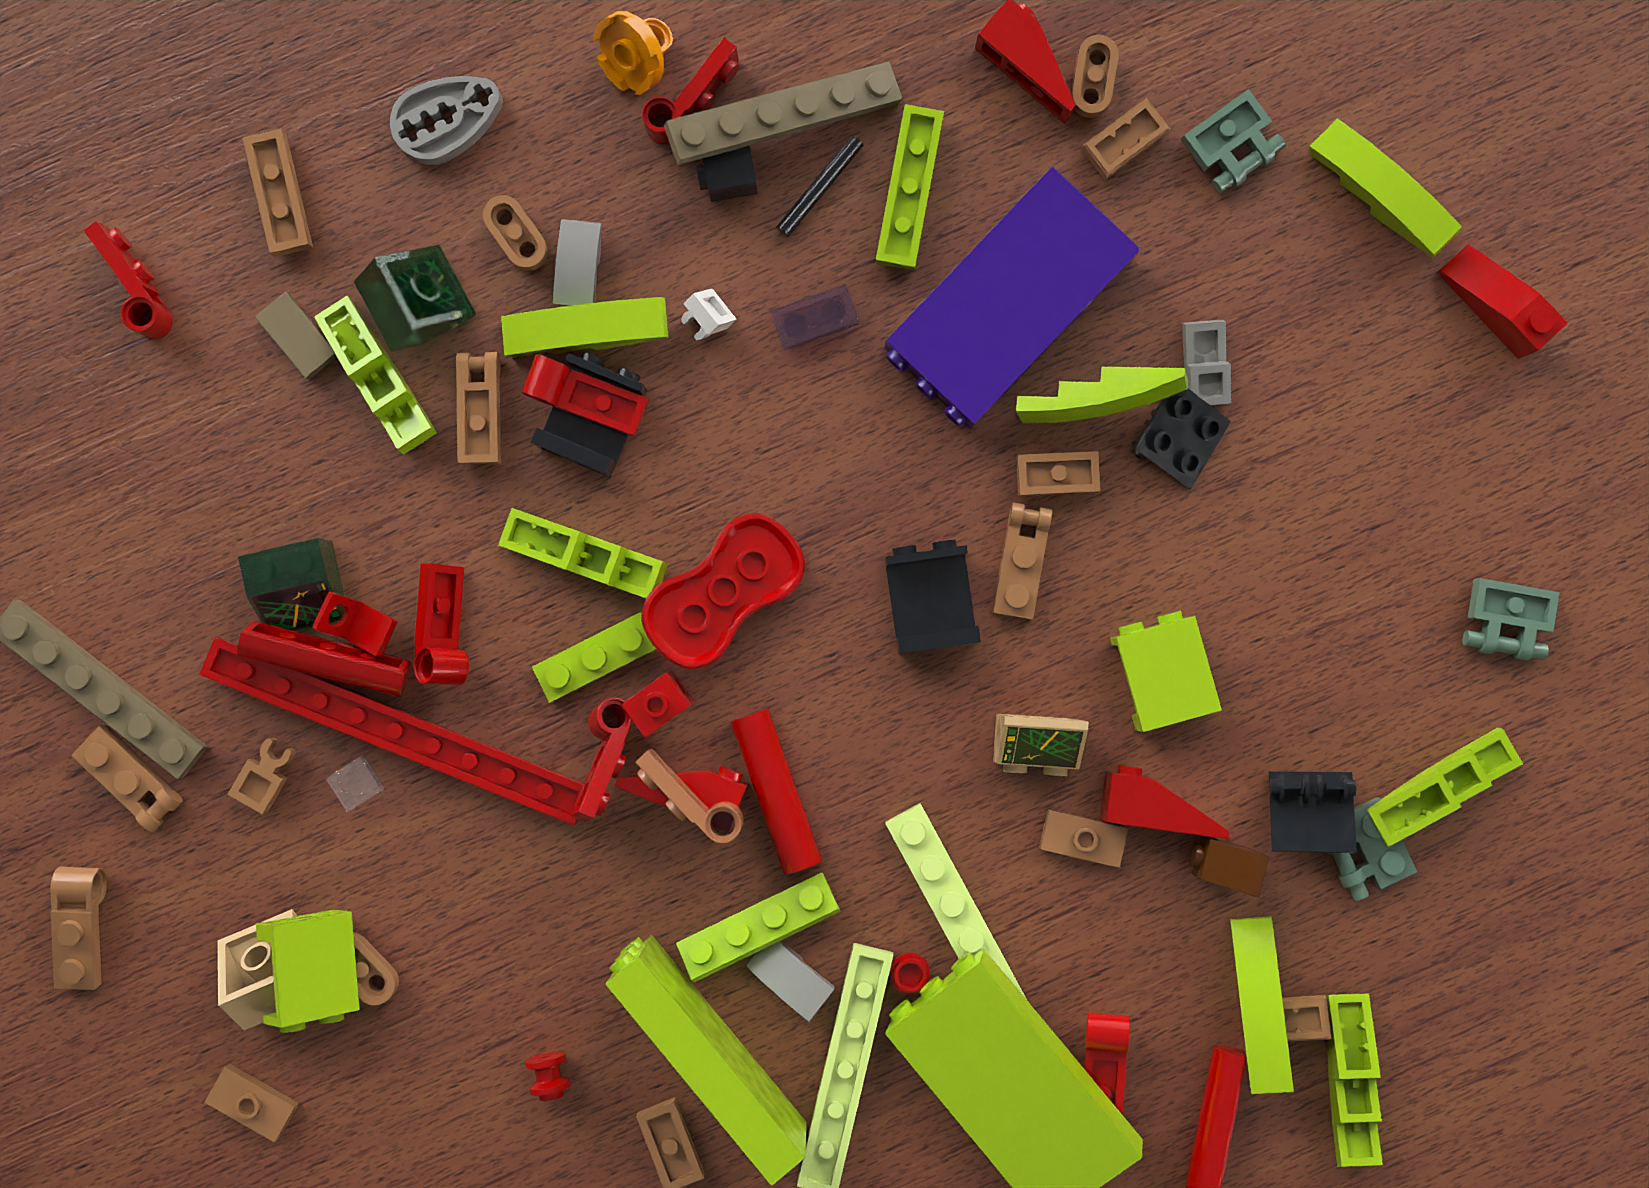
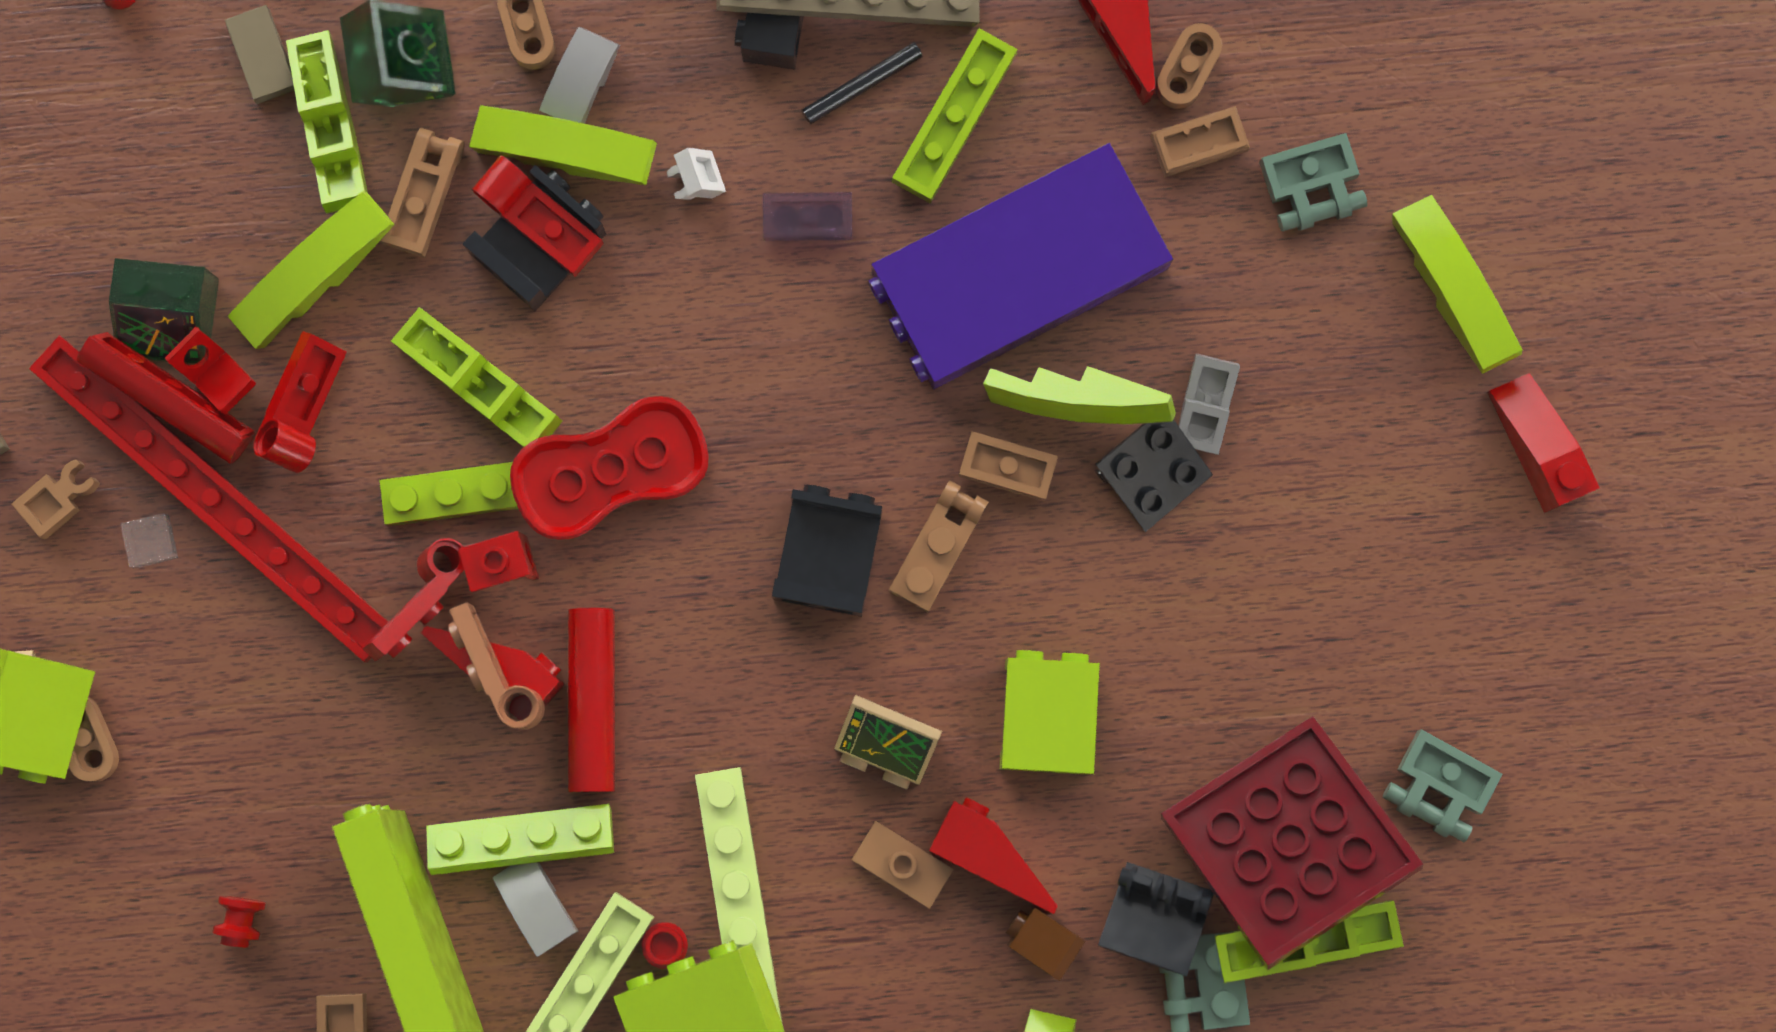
camera: 15 degrees right, 5 degrees down
(408, 507) = (311, 269): none -> lime slope
(1406, 711) = (1291, 842): none -> dark red plate

